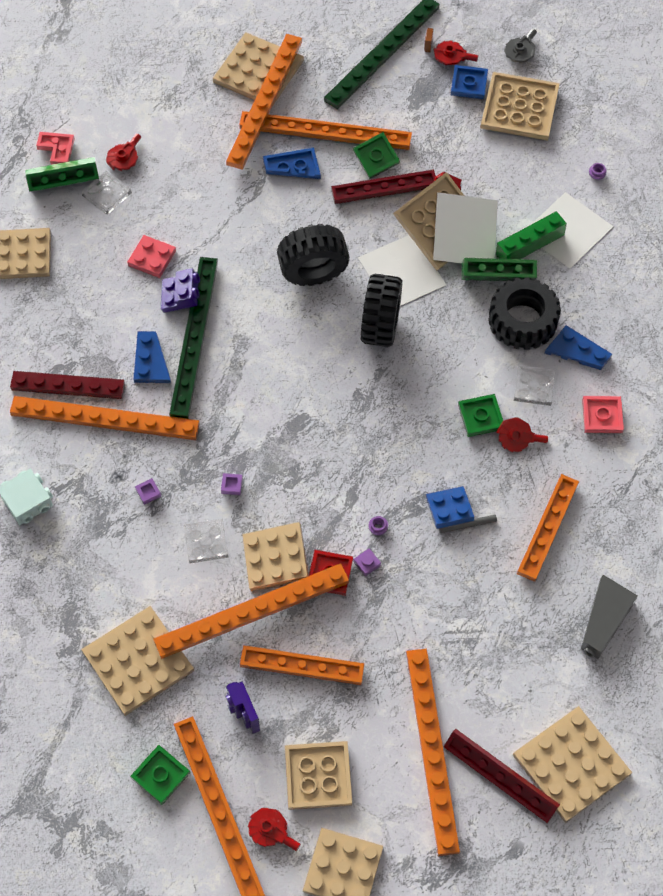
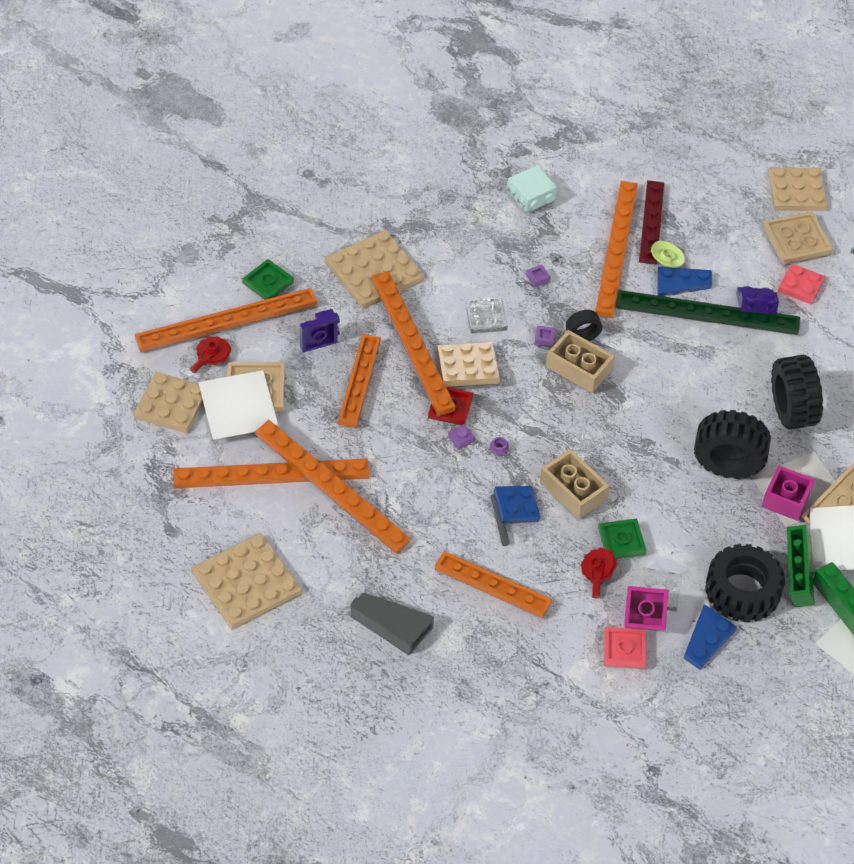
camera: 90 degrees right, 10 degrees down
(92, 255) = (797, 237): none -> tan plate
(119, 368) = (667, 254): none -> yellowish green dish
(225, 443) = (584, 317): none -> black tyre
(270, 448) = (580, 361): none -> tan brick
(348, 790) = (237, 404): none -> white sticker
(420, 274) = (788, 493): none -> dark pink brick
(426, 453) = (574, 483): none -> tan brick
(447, 685) = (333, 486): none -> orange plate
(501, 775) = (242, 517): dark red plate -> none
(568, 390) = (646, 608): none -> dark pink brick

